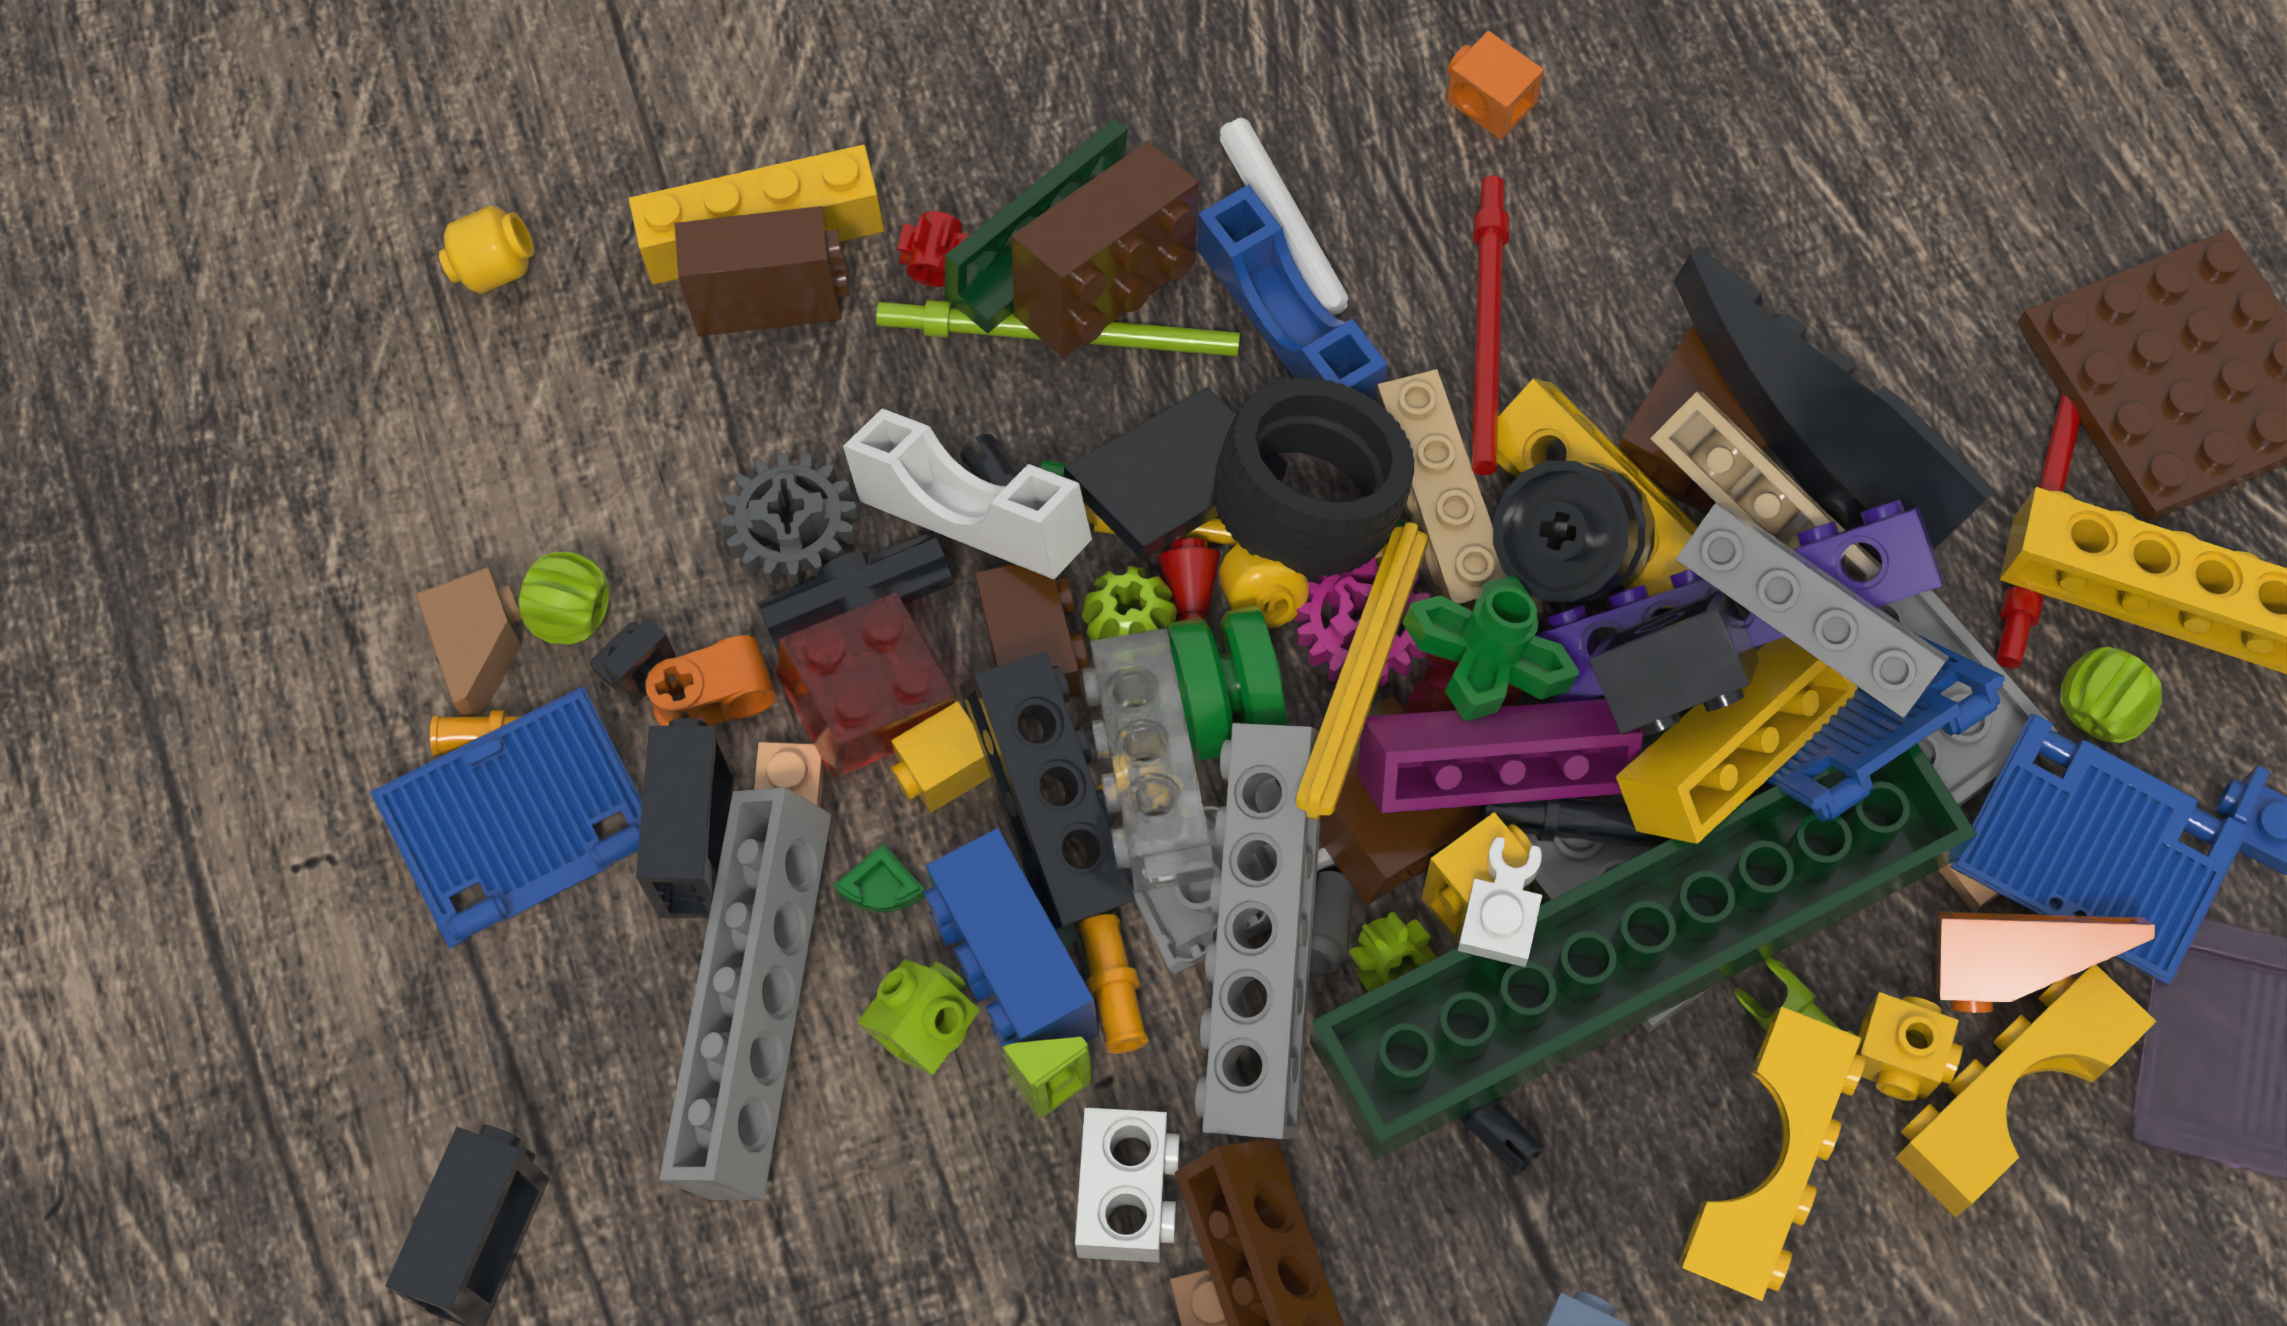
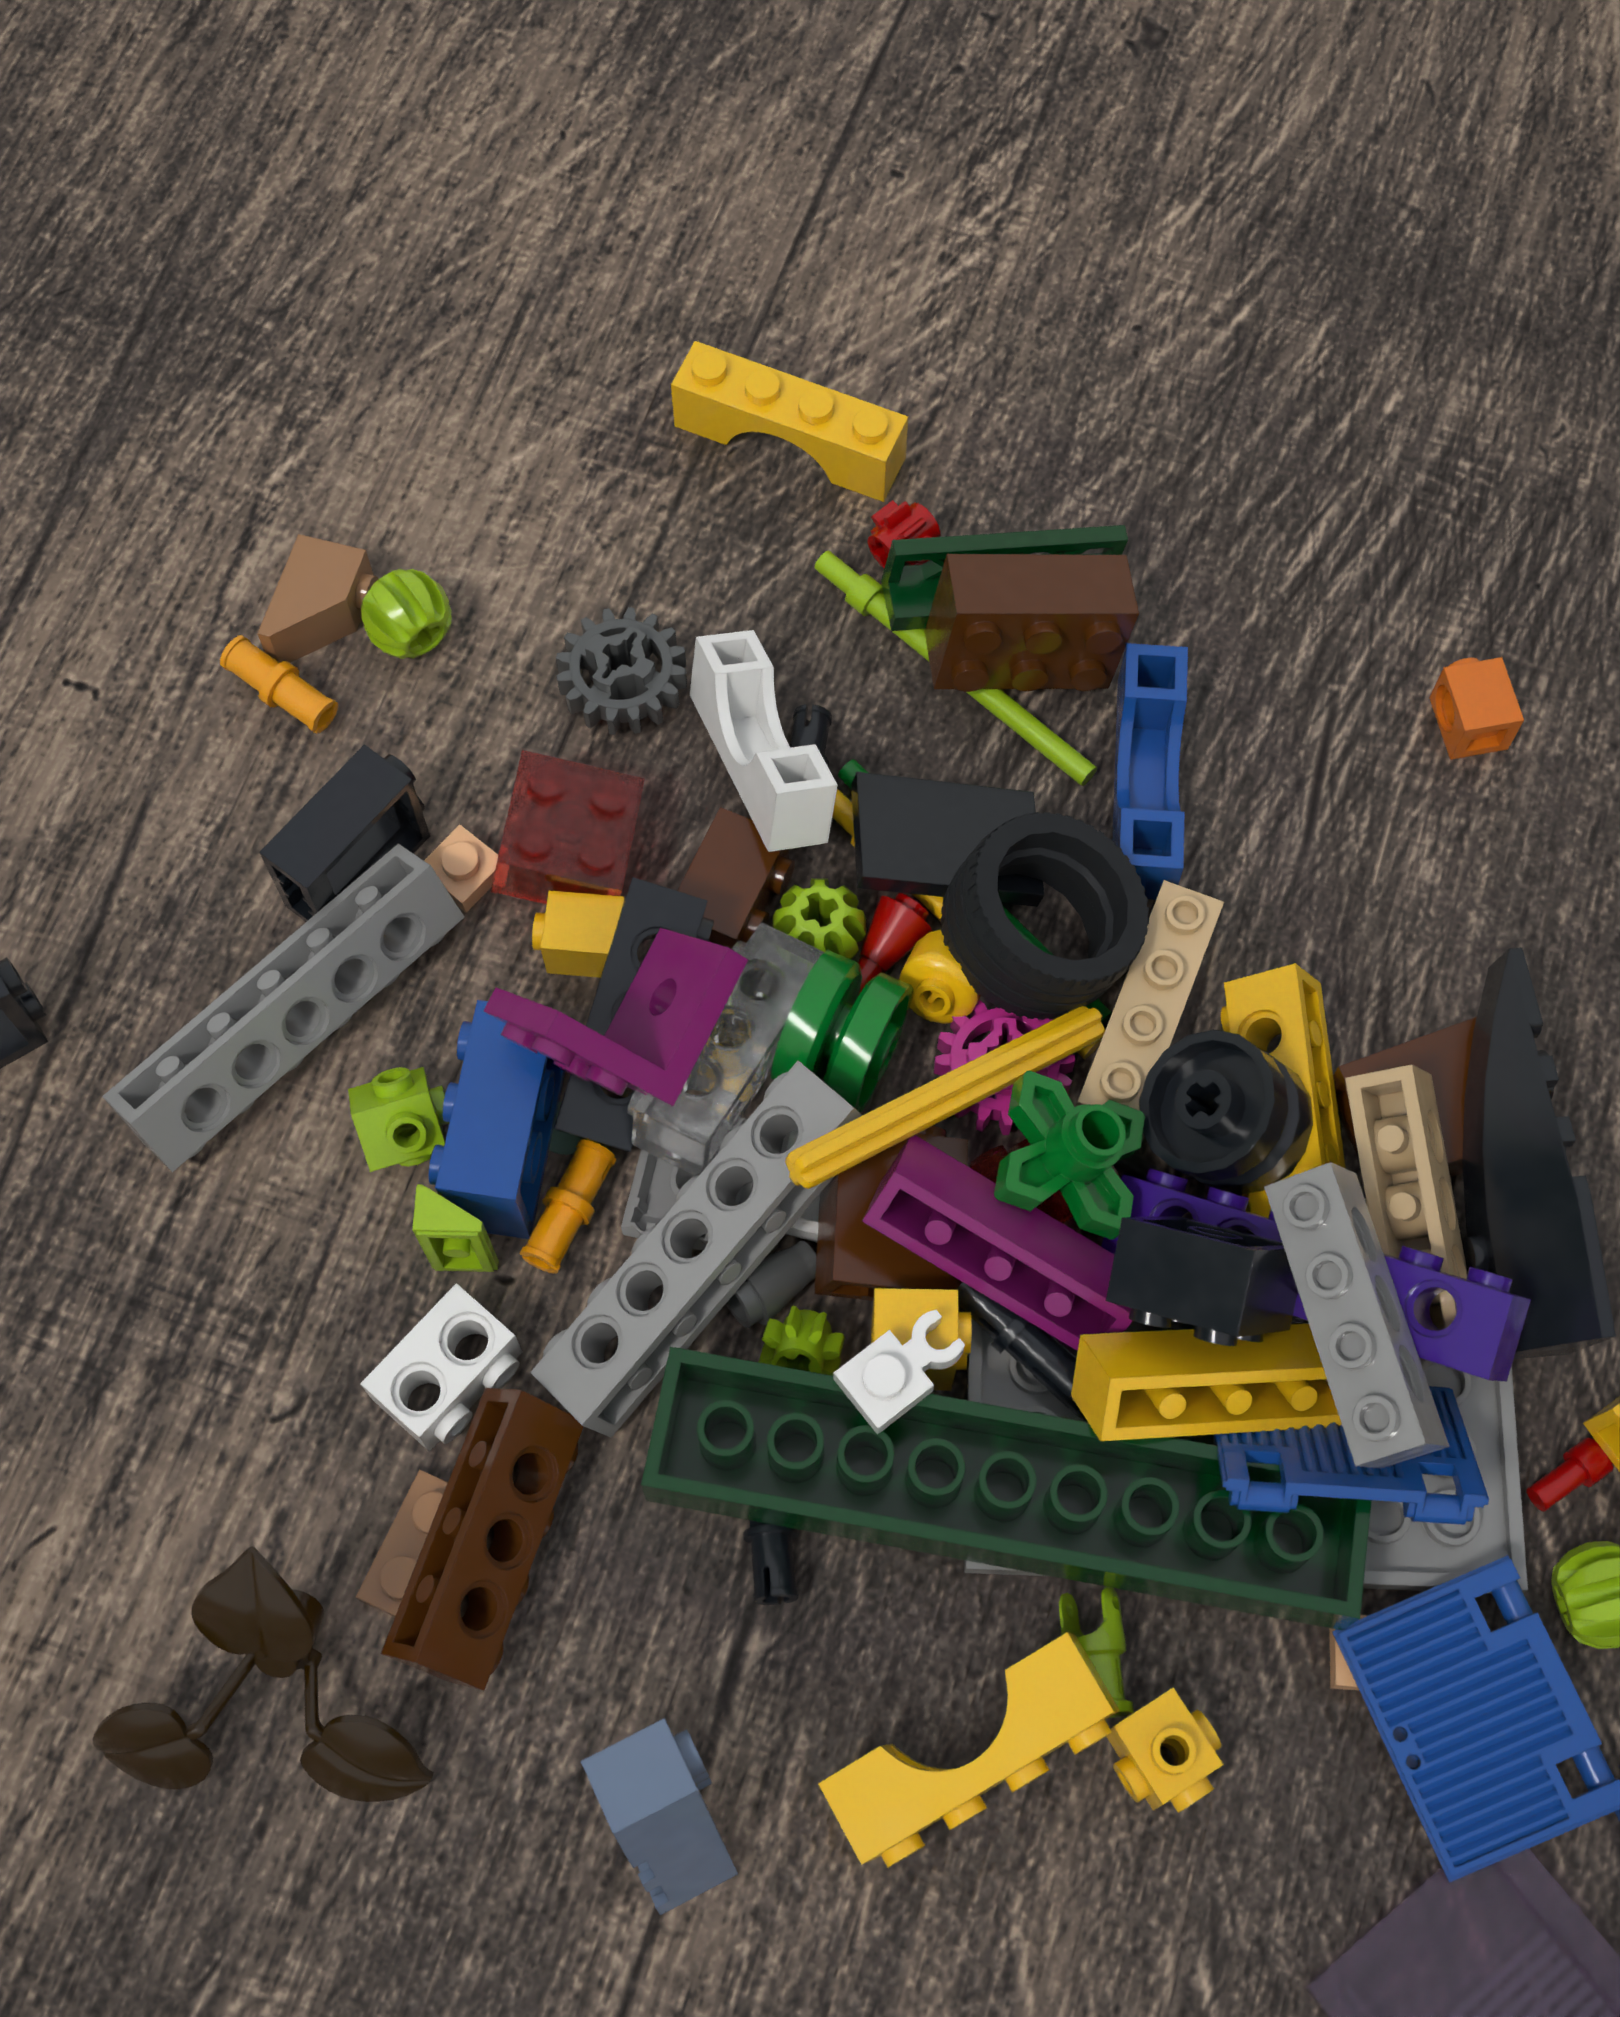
camera: 35 degrees right, 0 degrees up
(486, 249) = (568, 315): yellow head -> none
(514, 817) = (233, 751): blue window -> none
(630, 658) = (418, 698): black bracket -> none
(717, 683) = (462, 756): orange piece -> none
(761, 270) = (749, 462): reddish brown brick -> none
(855, 580) = (628, 748): black piece -> none
(880, 884) = (457, 993): green tile -> none
(1087, 803) = (654, 1029): none -> magenta bracket
(1261, 175) = (1209, 700): white axle -> none
(1490, 234) = (1372, 828): red bar -> none
(1969, 1142) = (1335, 1858): yellow arch -> none
(2012, 955) = (1325, 1748): slope -> none

